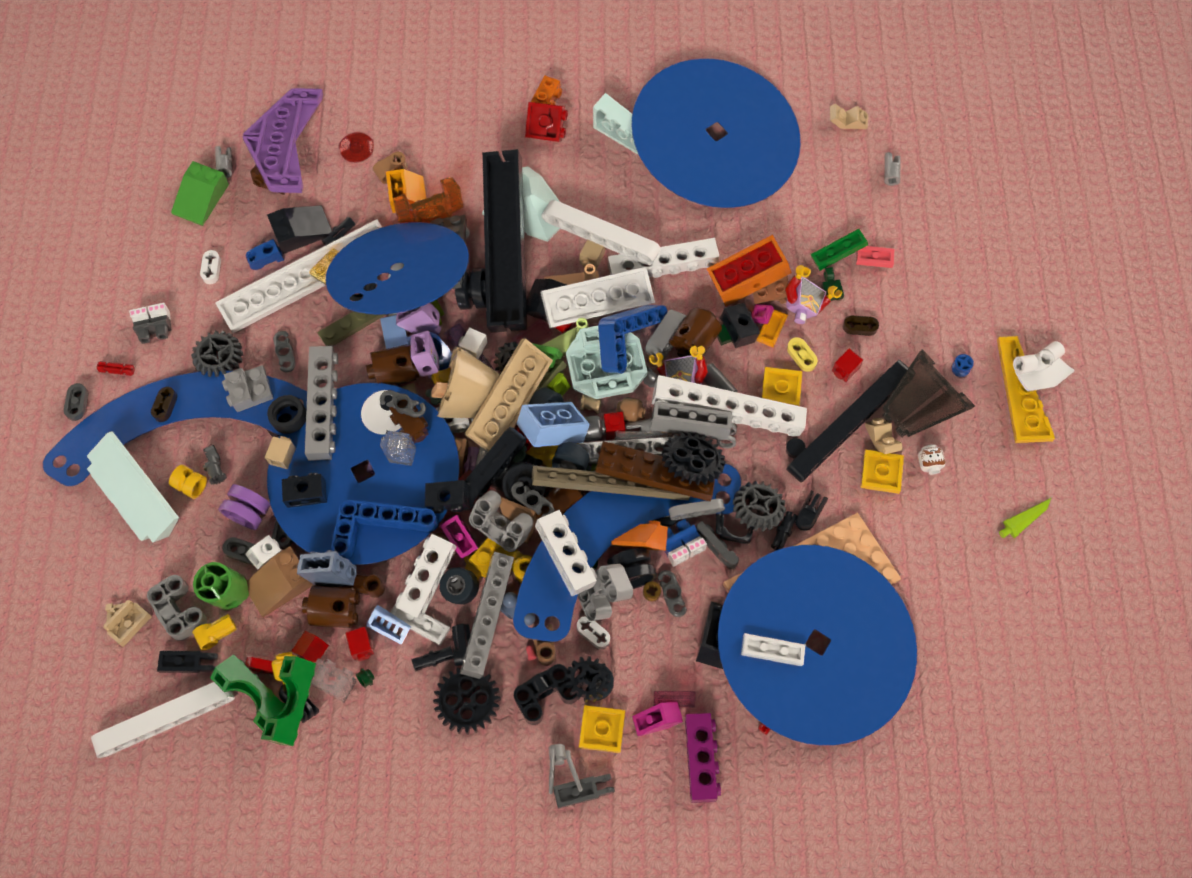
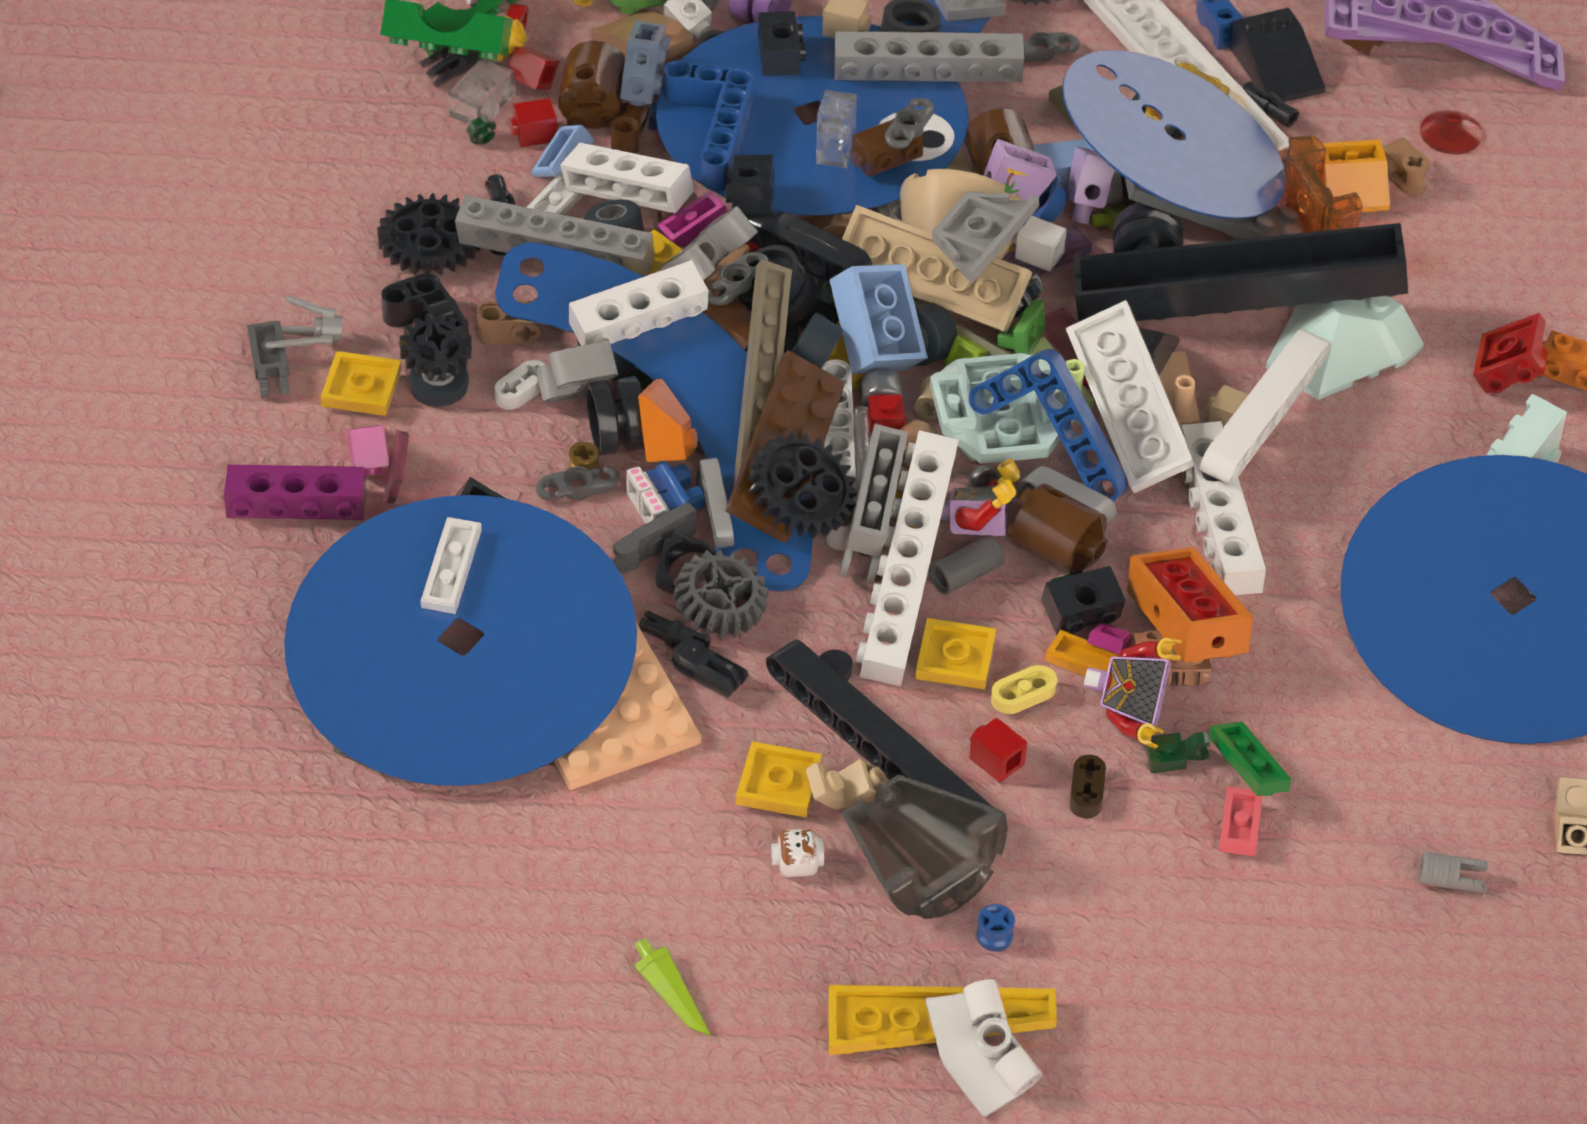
camera: 90 degrees right, 20 degrees down
(498, 361) = (980, 229): none -> light grey wing

